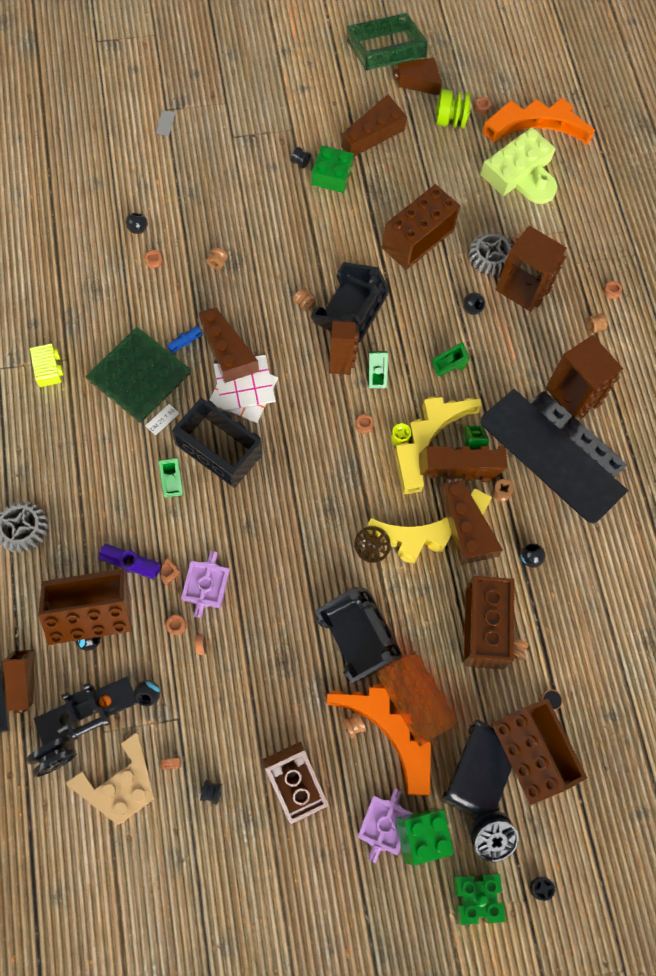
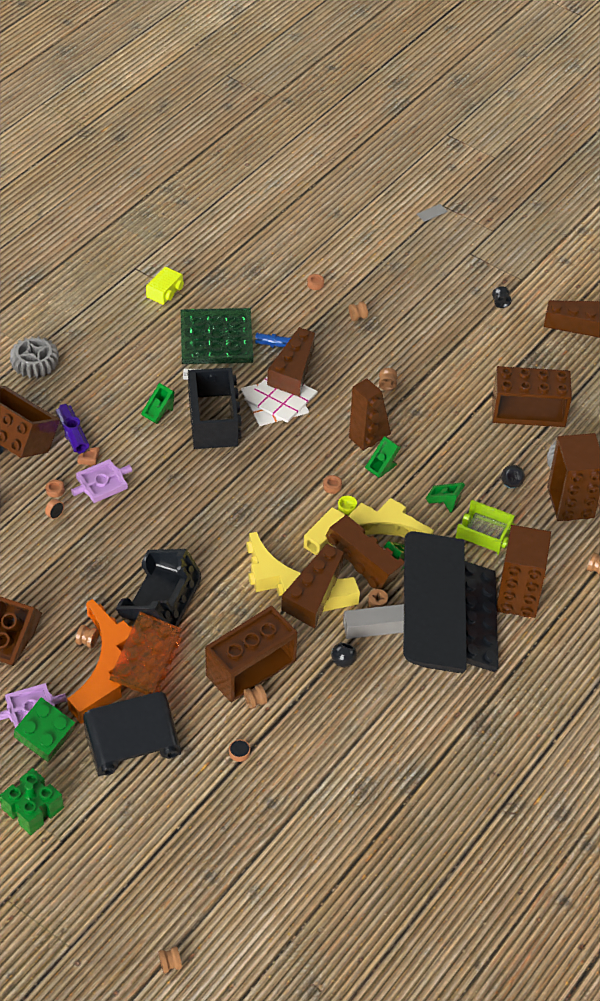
camera: 50 degrees right, 20 degrees down
(136, 223) = (329, 251): black piece -> none
(332, 169) = (515, 319): green brick -> none
(356, 300) = (423, 412): black windscreen -> none
(372, 544) = (238, 550): dark brown wheel -> none
(493, 836) = (76, 774): black wheel -> none
(501, 361) = (486, 526): none -> lime window
(521, 506) = (373, 621): none -> light grey brick
(539, 751) = (198, 760): reddish brown hose -> none
(546, 887) = (77, 836): black wheel -> none

